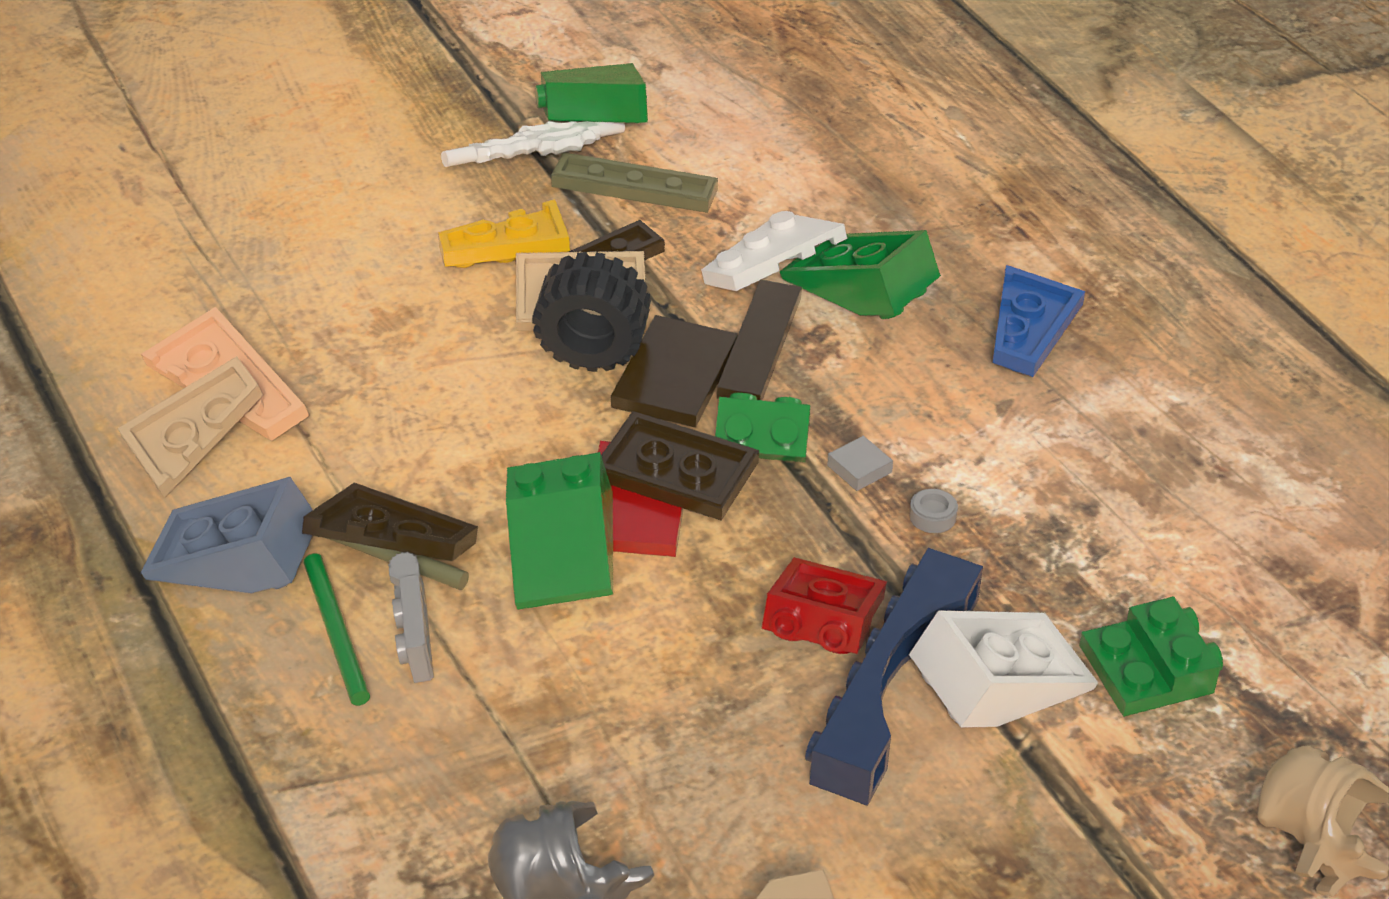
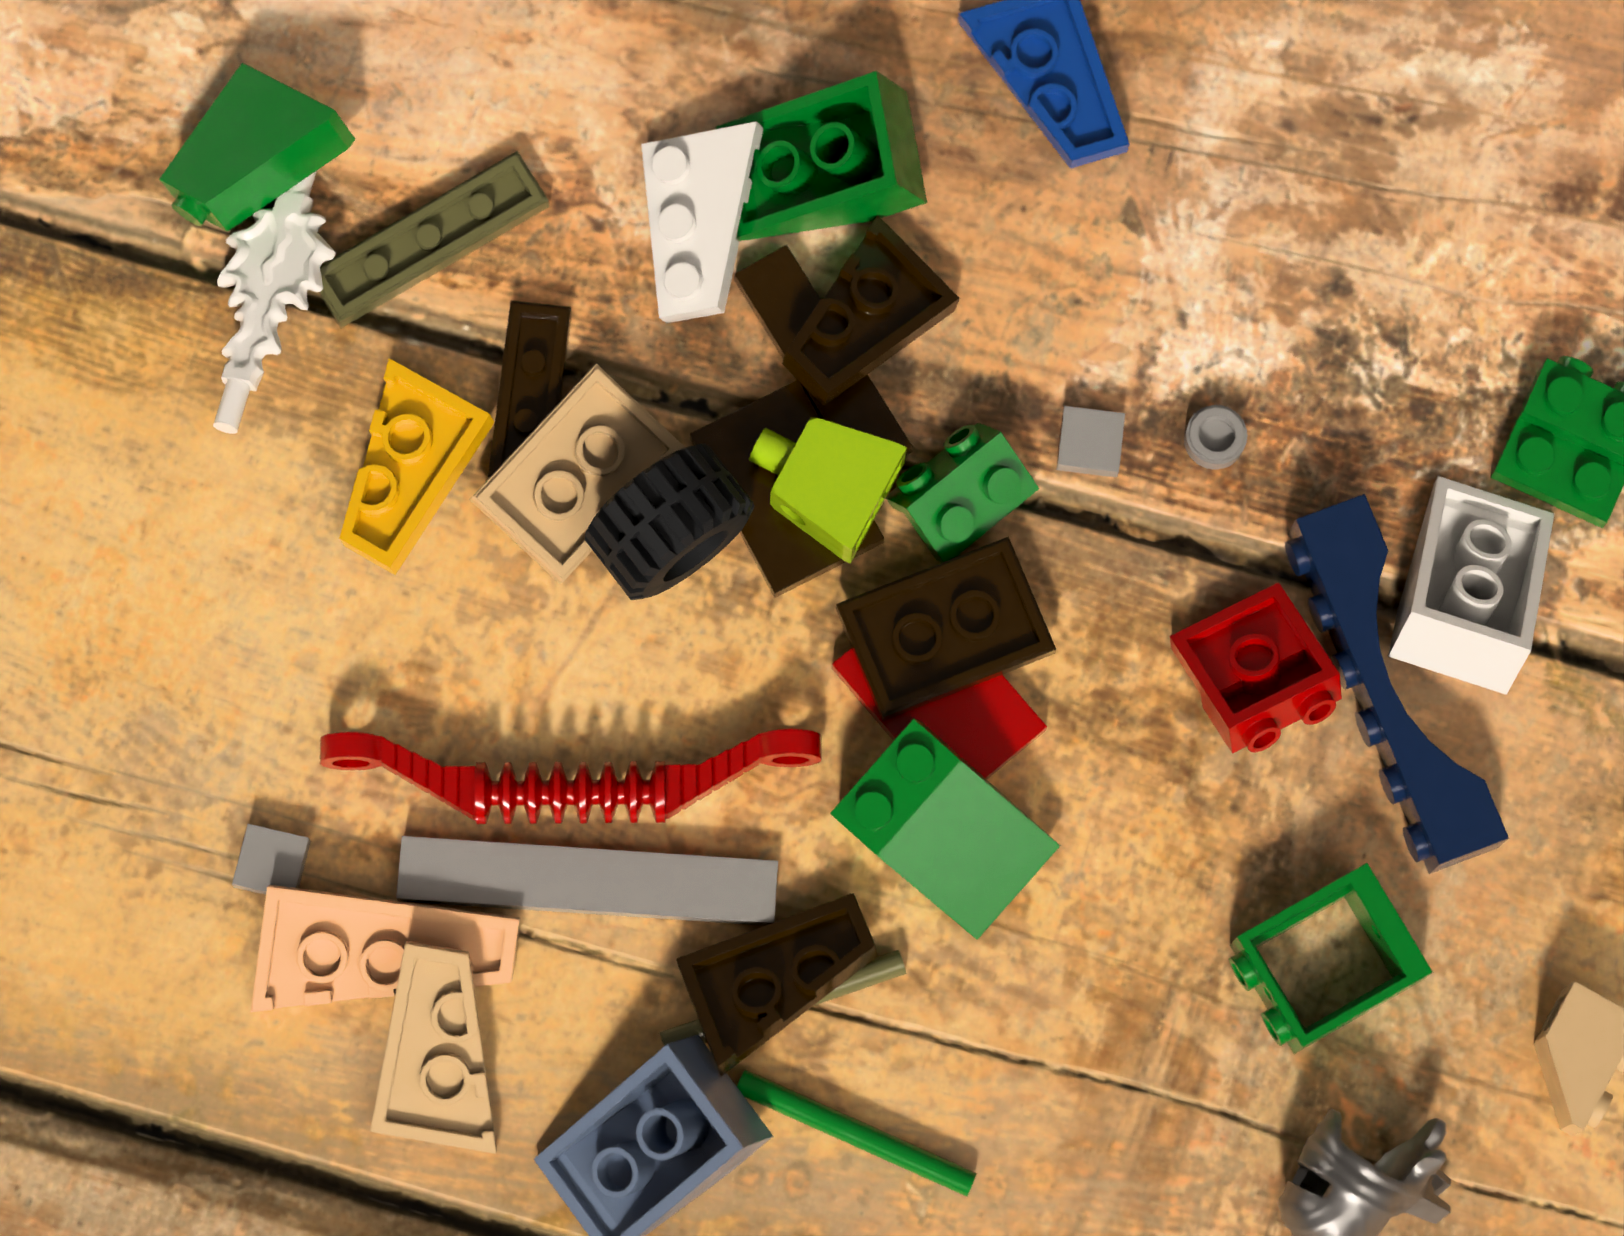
camera: 50 degrees left, 35 degrees up
(241, 315) = (270, 859): none -> light grey tile
(366, 434) = (587, 881): none -> light grey tile
(411, 392) = (667, 790): none -> red piece
(411, 614) = (915, 1055): light grey hinge -> none
(698, 364) = (830, 480): none -> lime torso
(700, 722) = (1380, 924): none -> green window
(810, 332) = (868, 315): none -> dark brown wing

